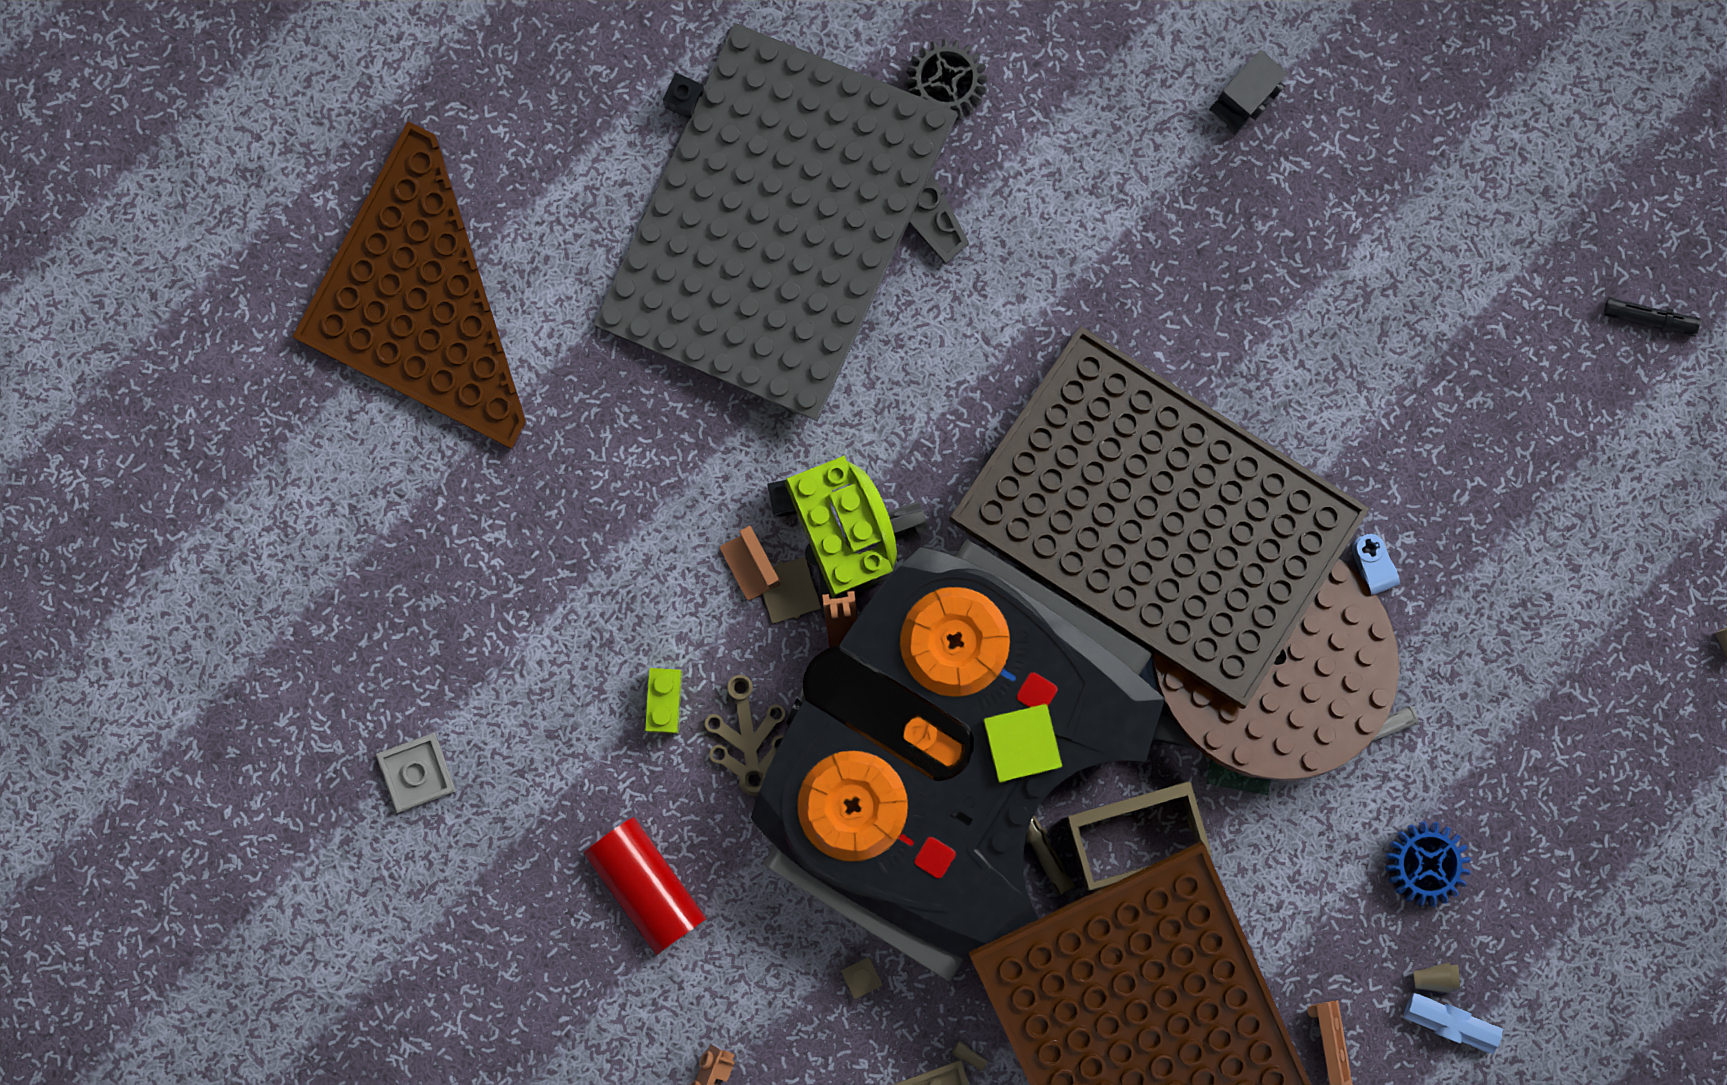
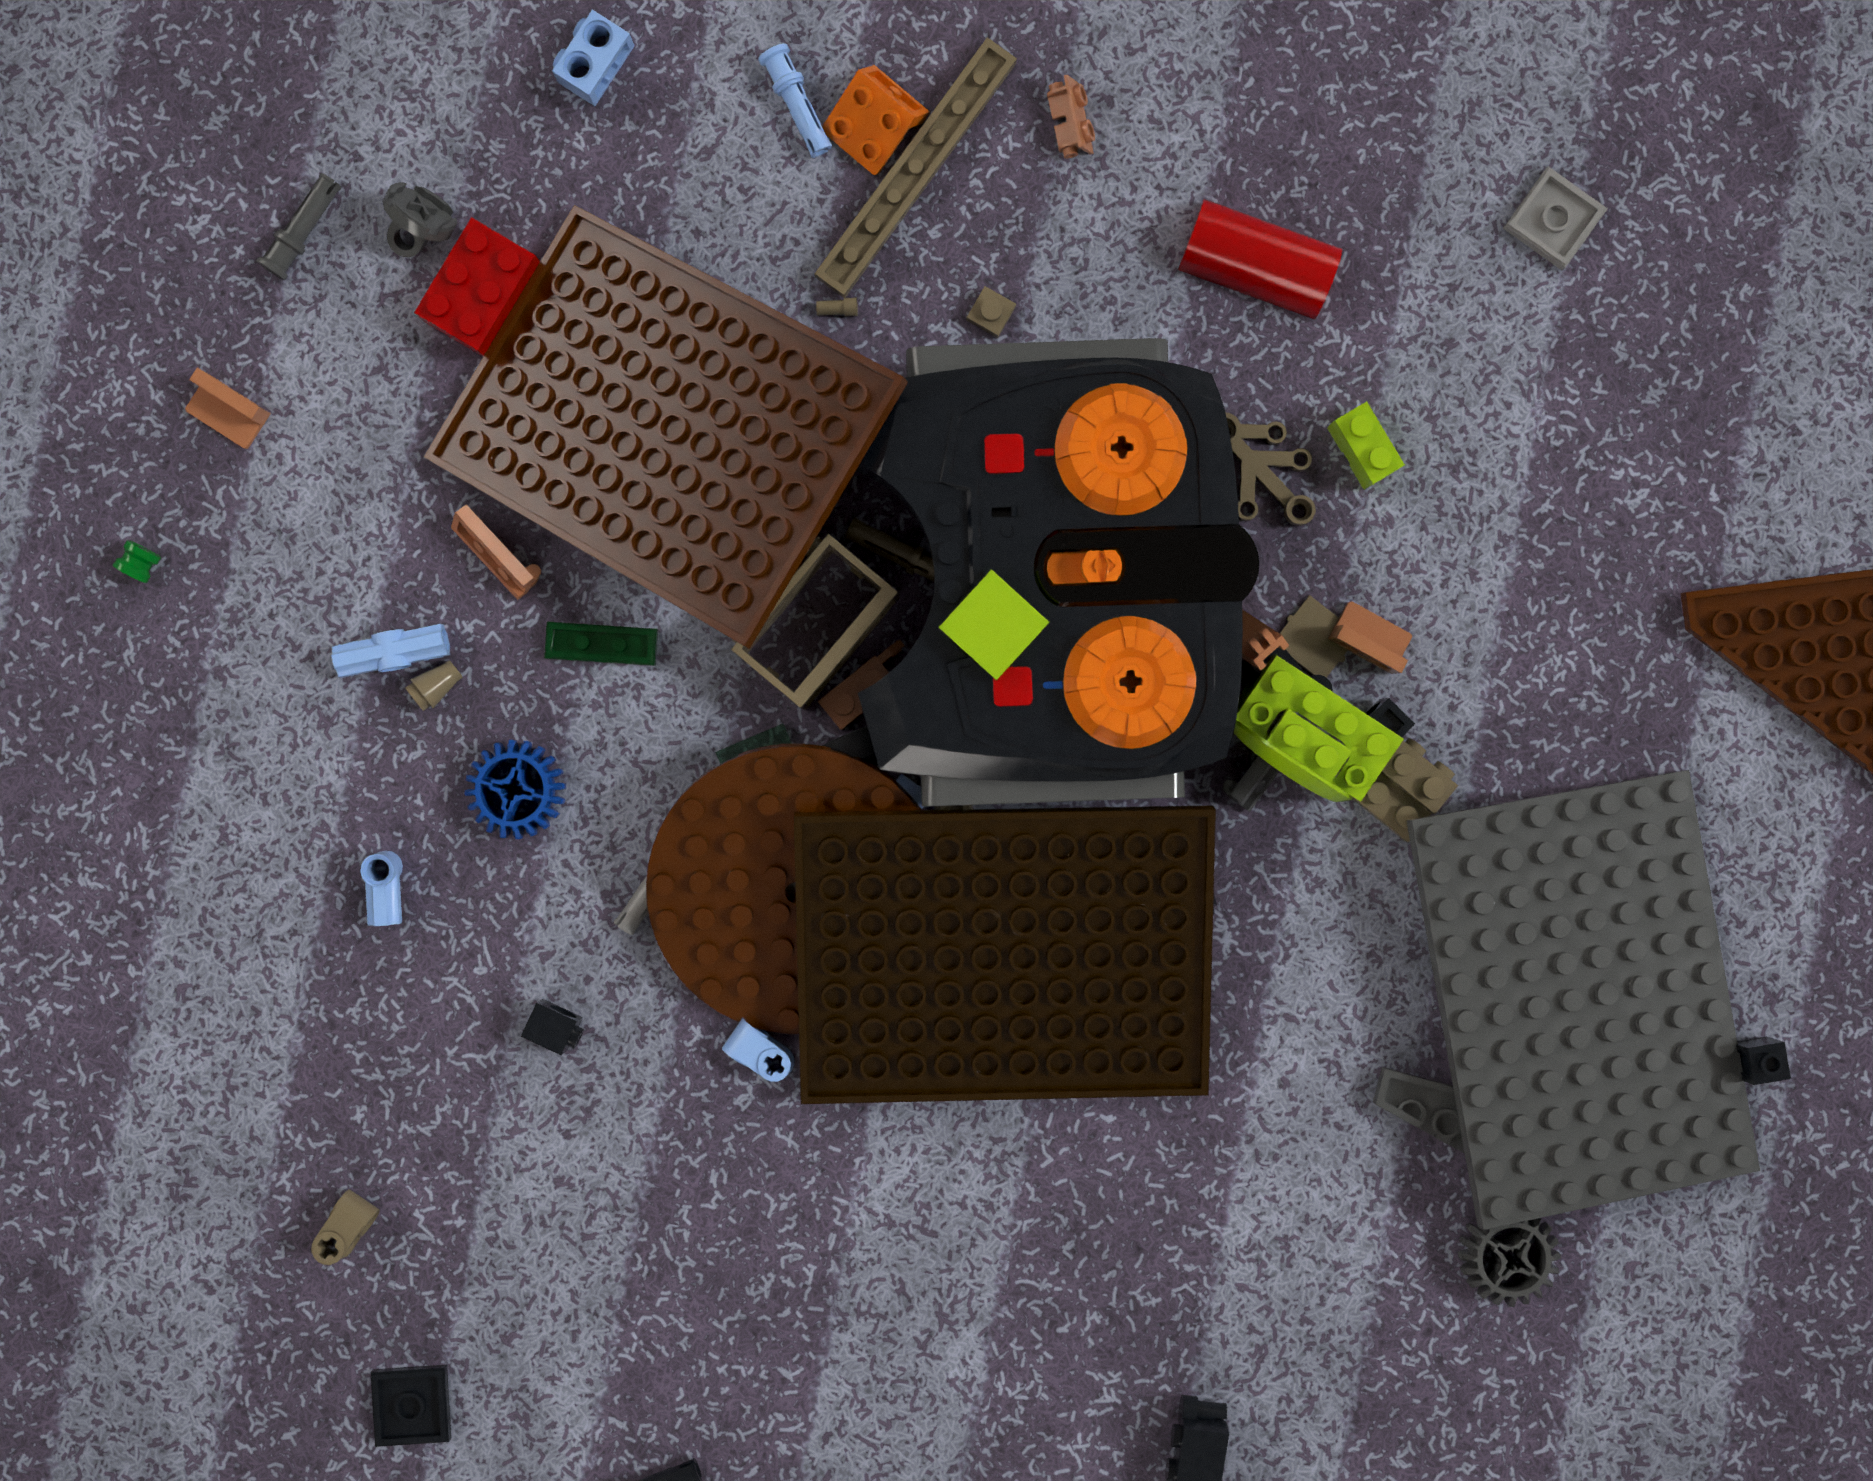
camera: 145 degrees right, 5 degrees up
(797, 443) = (1408, 789): none -> dark tan plate
(1127, 773) = (843, 701): none -> nougat hinge
(1298, 928) = (601, 643): none -> dark green tile
(1509, 677) = (553, 1027): none -> black brick
(1570, 854) = (382, 894): none -> light blue piece

